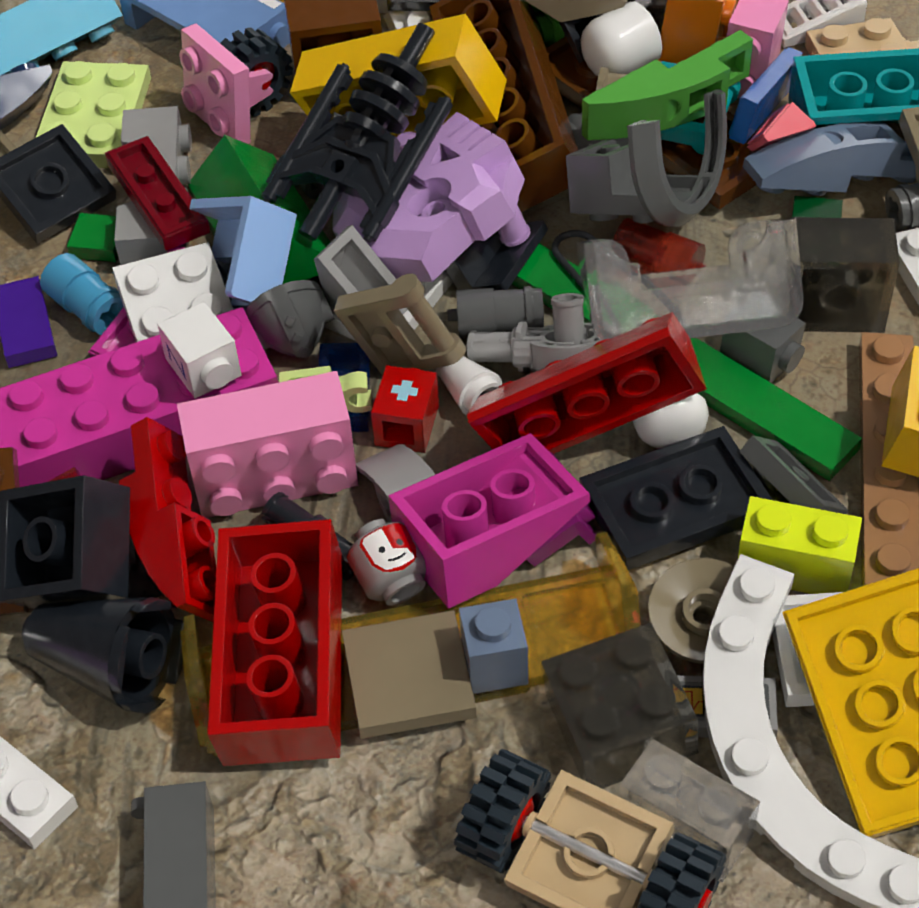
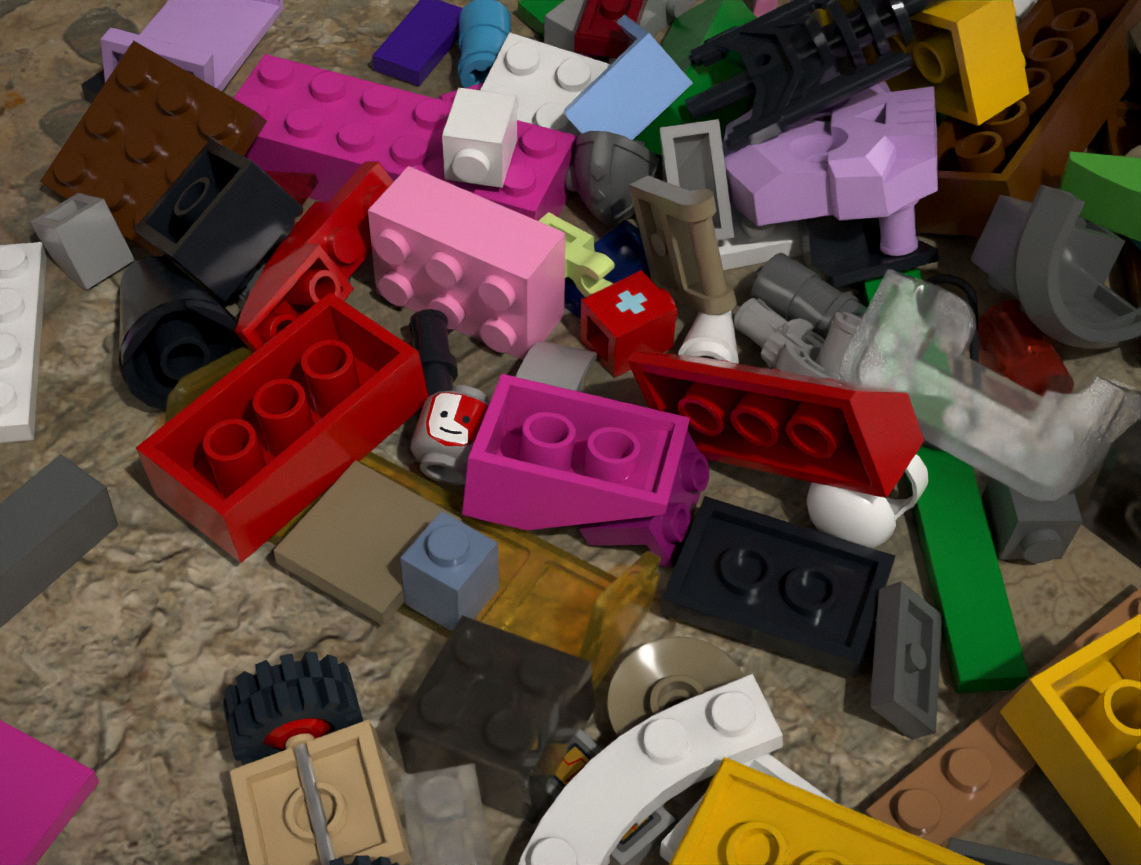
camera: 40 degrees right, 0 degrees up
(804, 541) = (834, 721): neon yellow brick -> none

